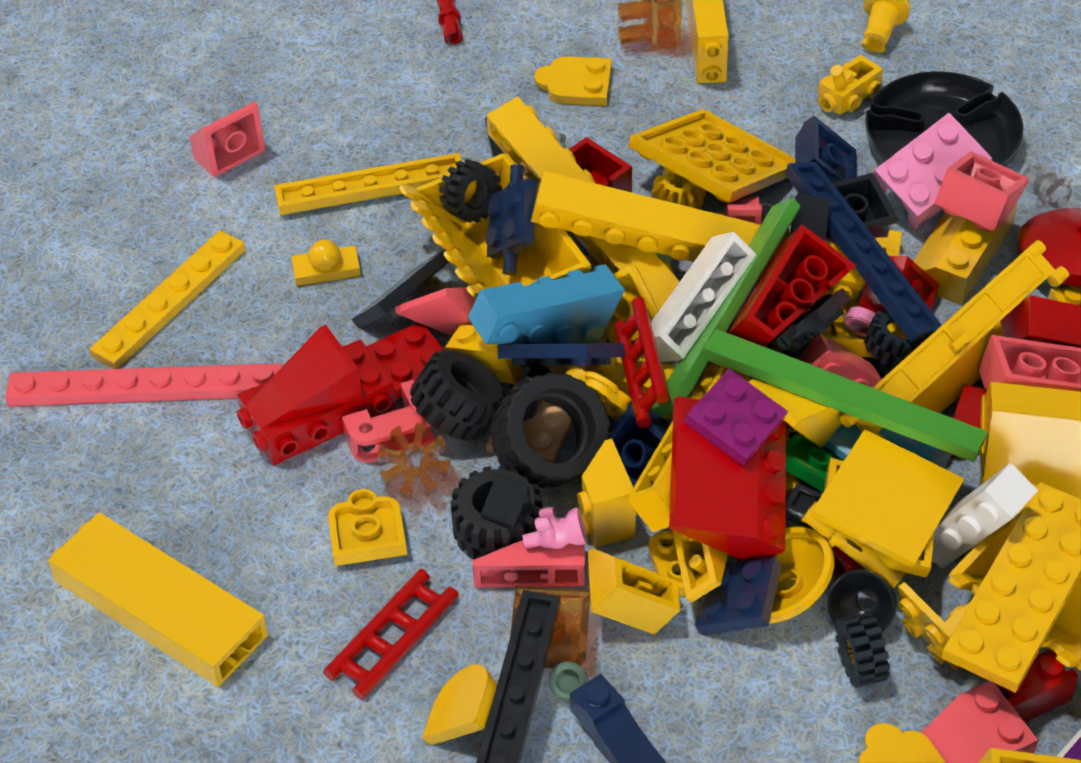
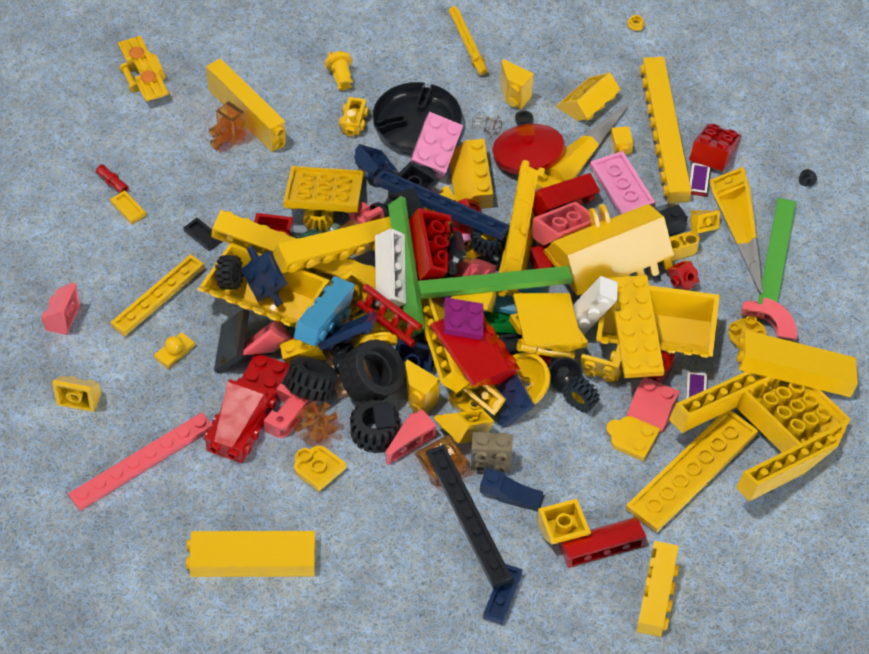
camera: 40 degrees left, 5 degrees up
(142, 247) = (76, 393): none -> yellow slope
(167, 300) = (110, 412): yellow plate -> none
(391, 653) = (362, 514): red bar -> none
(439, 61) = (128, 207): none -> yellow tile
(461, 705) = (435, 517): yellow tile -> none
(557, 532) = (416, 416): bright pink piece -> none
(567, 678) = (470, 479): sand green tile -> none
(576, 80) = (211, 182): yellow plate -> none
(634, 655) = (491, 451): none -> dark tan brick
(980, 191) = (472, 146): coral slope -> none

